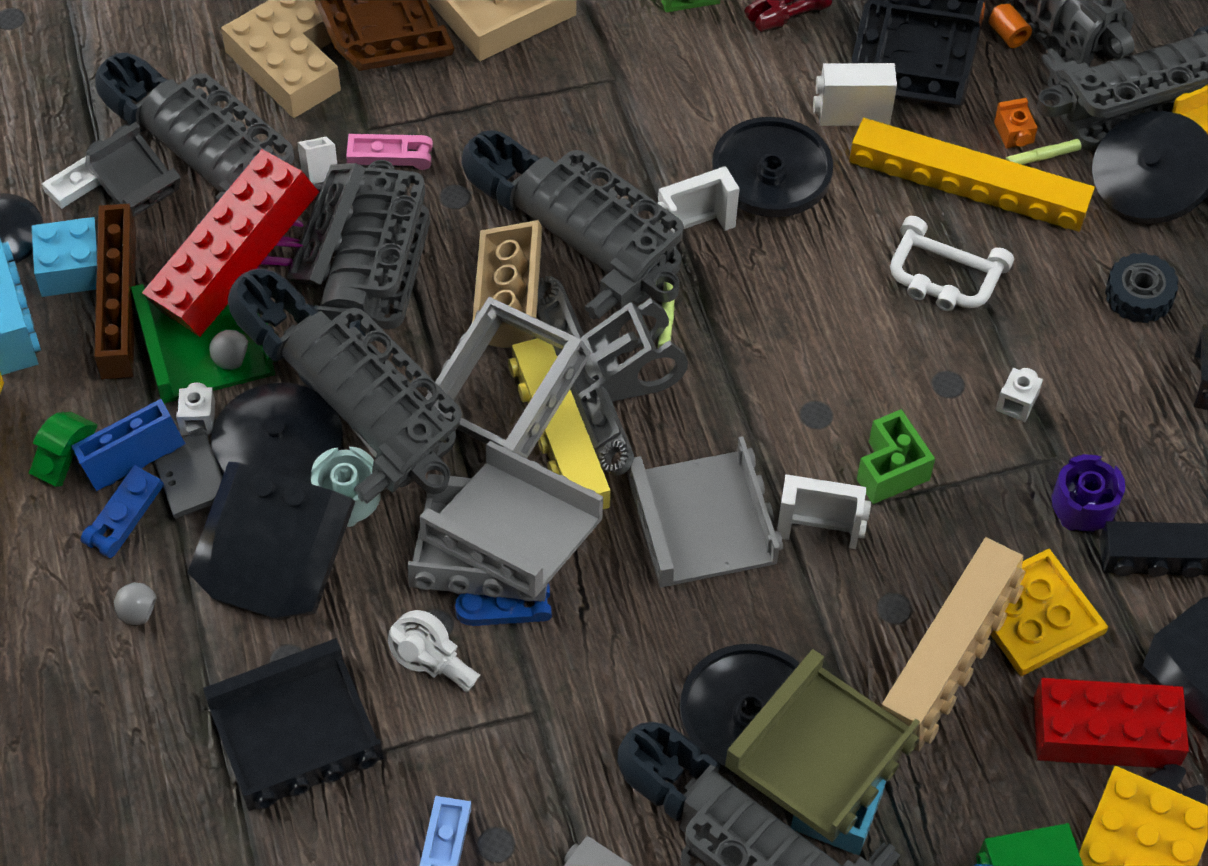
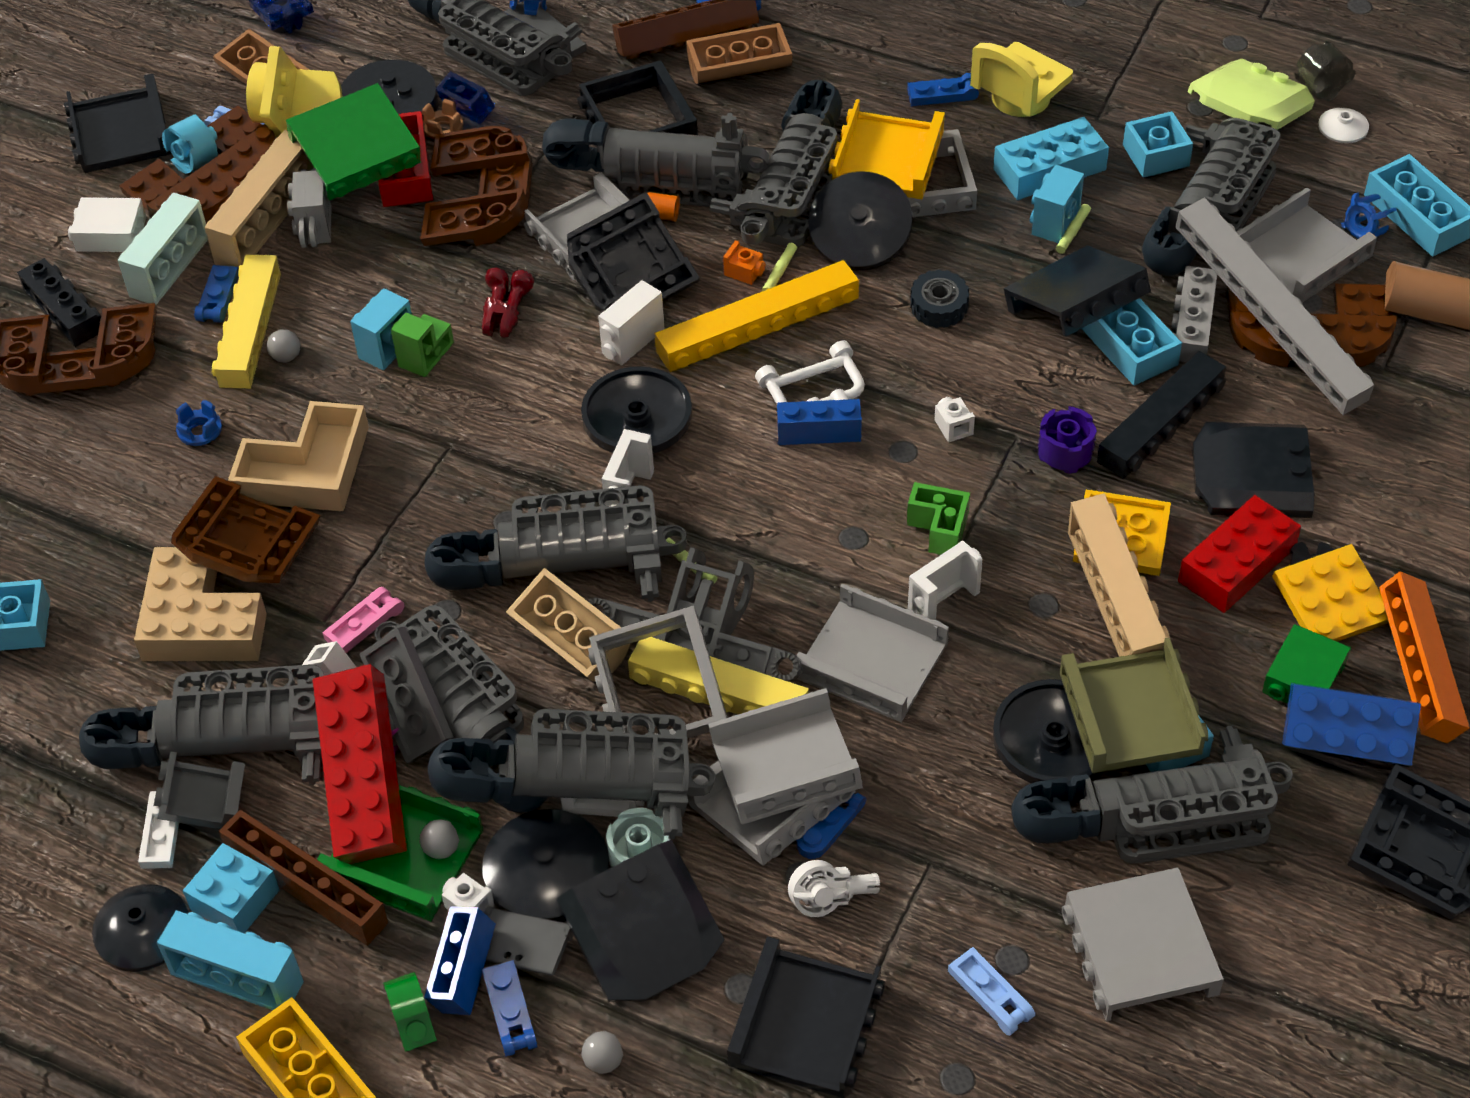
camera: 45 degrees left, 5 degrees down
(903, 298) = (819, 422): none -> blue brick

